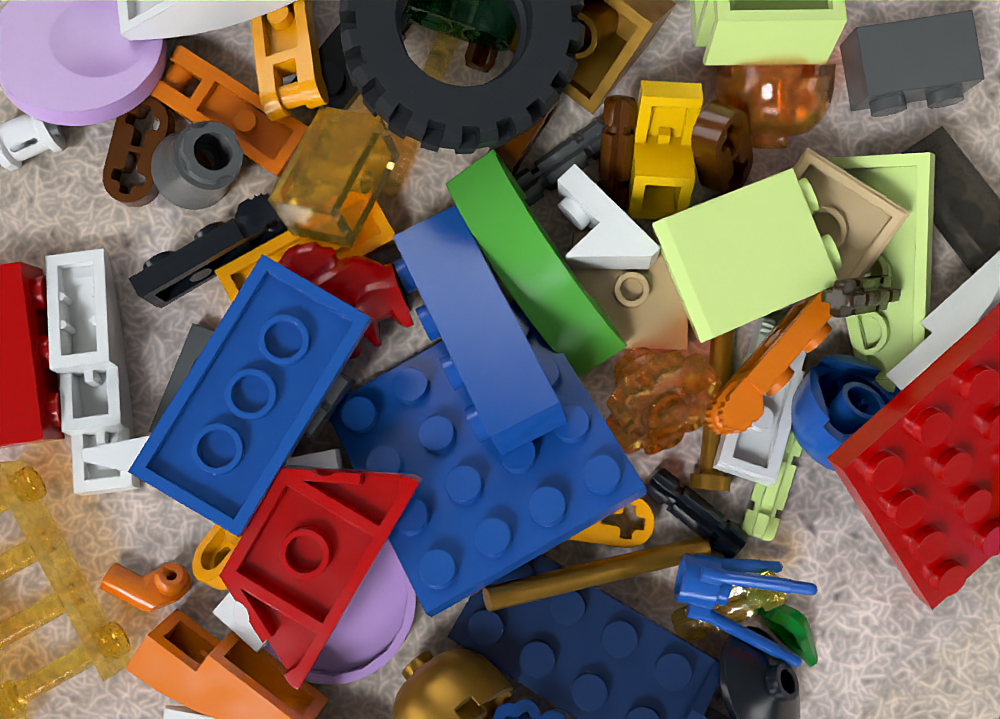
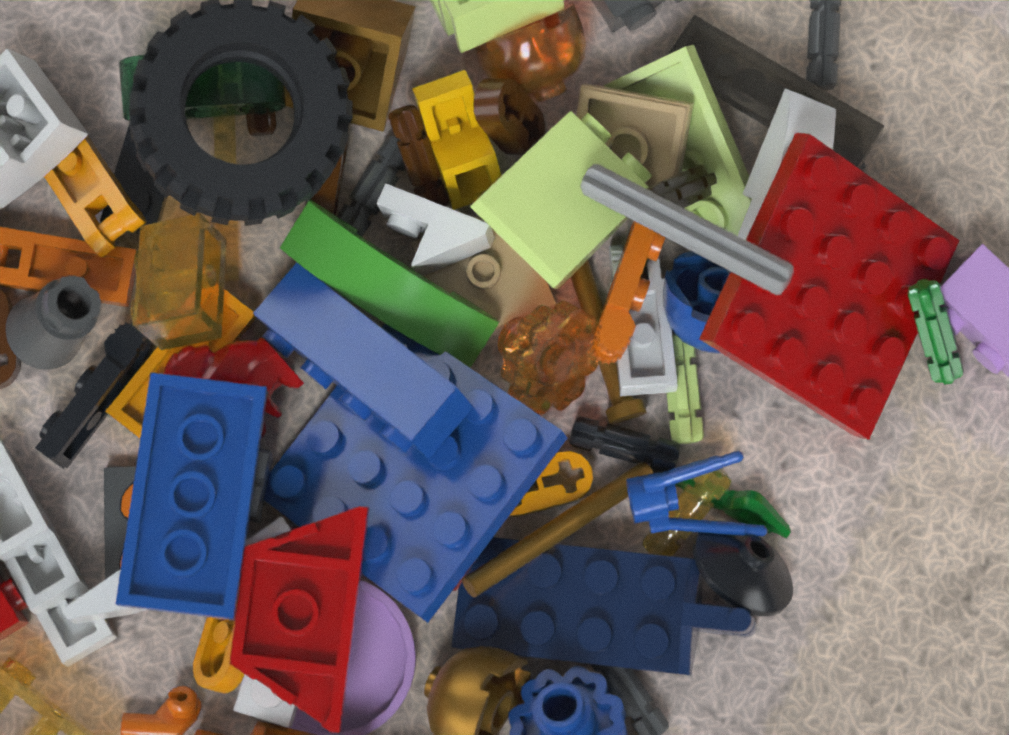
camera: 25 degrees left, 5 degrees down
(868, 343) = (687, 229): none -> light grey axle

